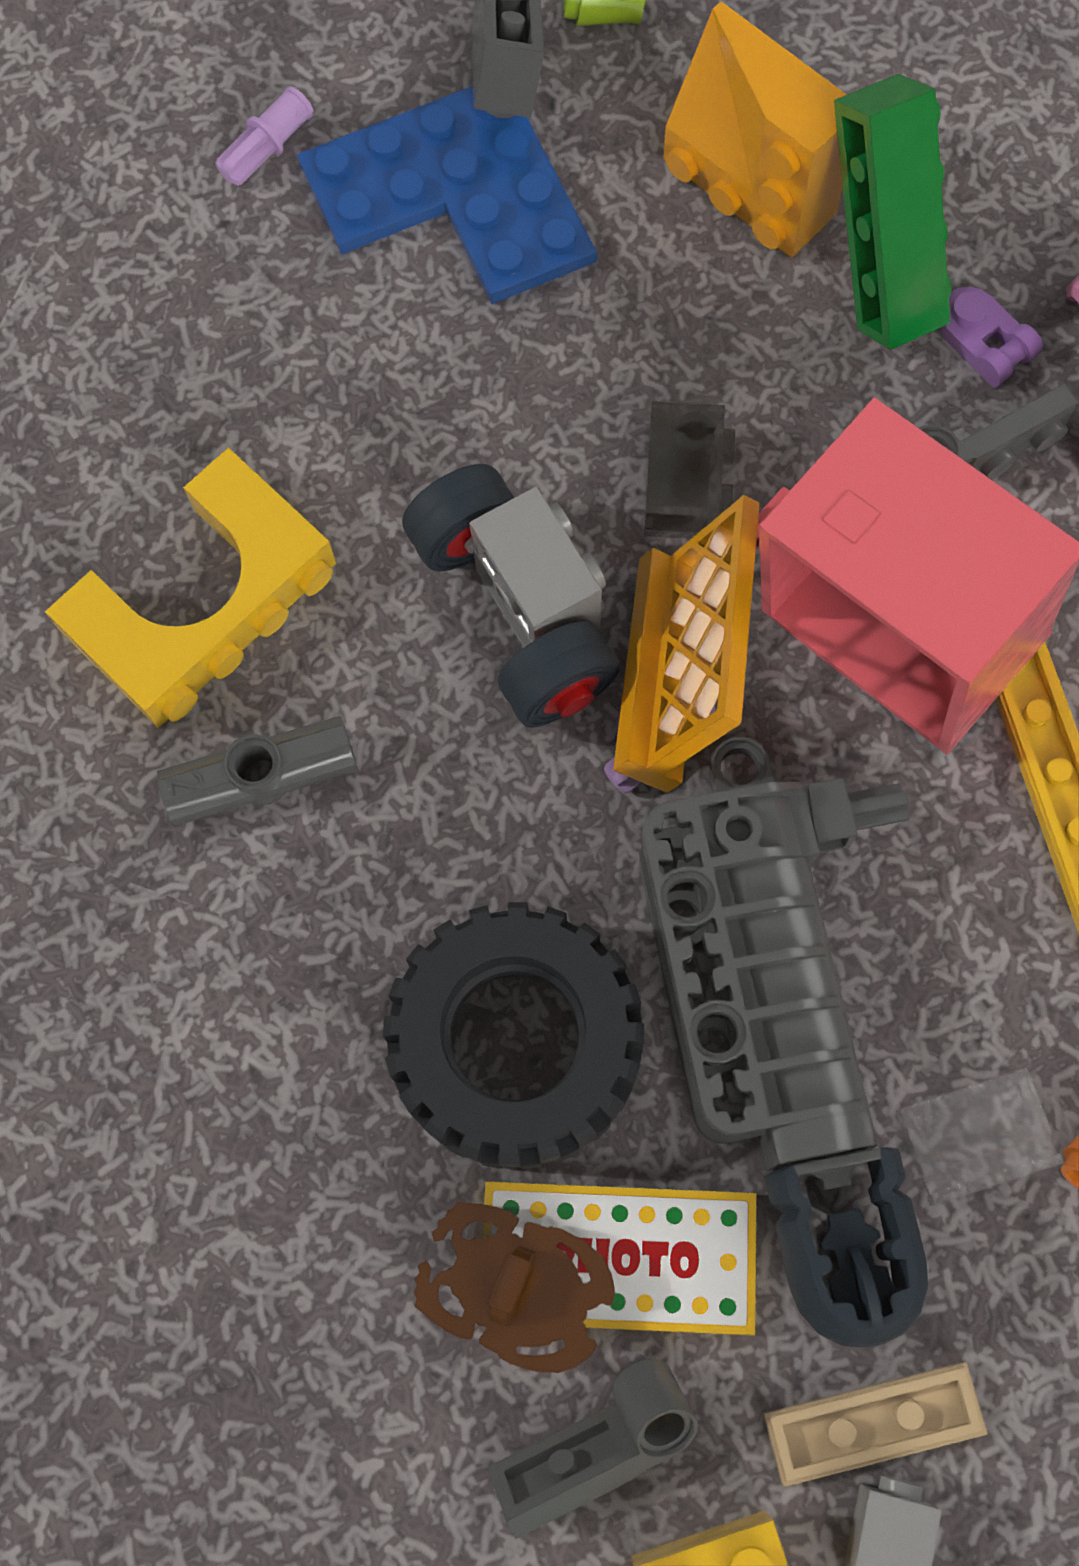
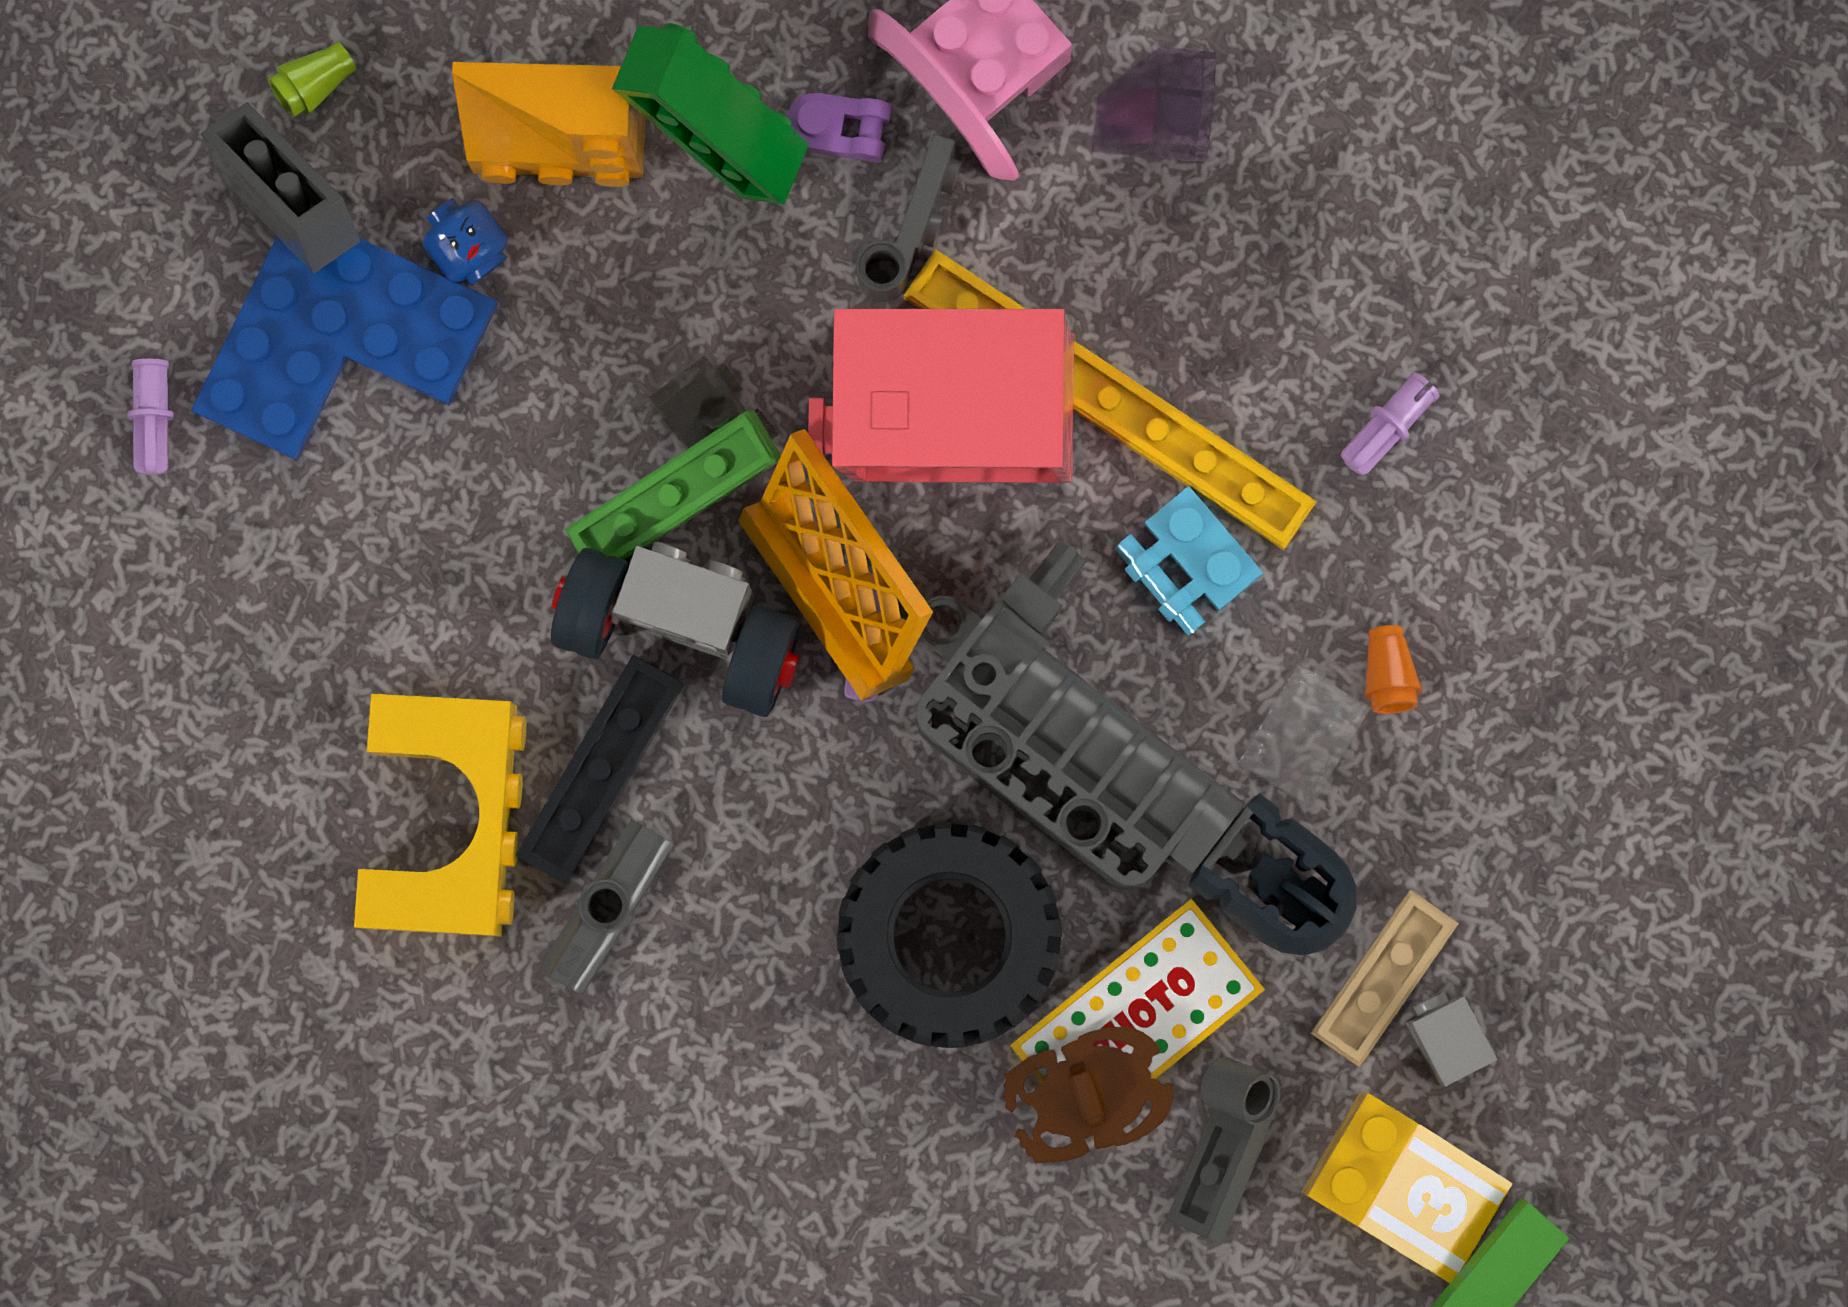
camera: 40 degrees left, 10 degrees up
(352, 661) = (600, 770): none -> black plate
(612, 190) = (465, 241): none -> blue head
(623, 488) = (678, 489): none -> bright green tile
(1015, 896) = (1202, 551): none -> medium azure plate

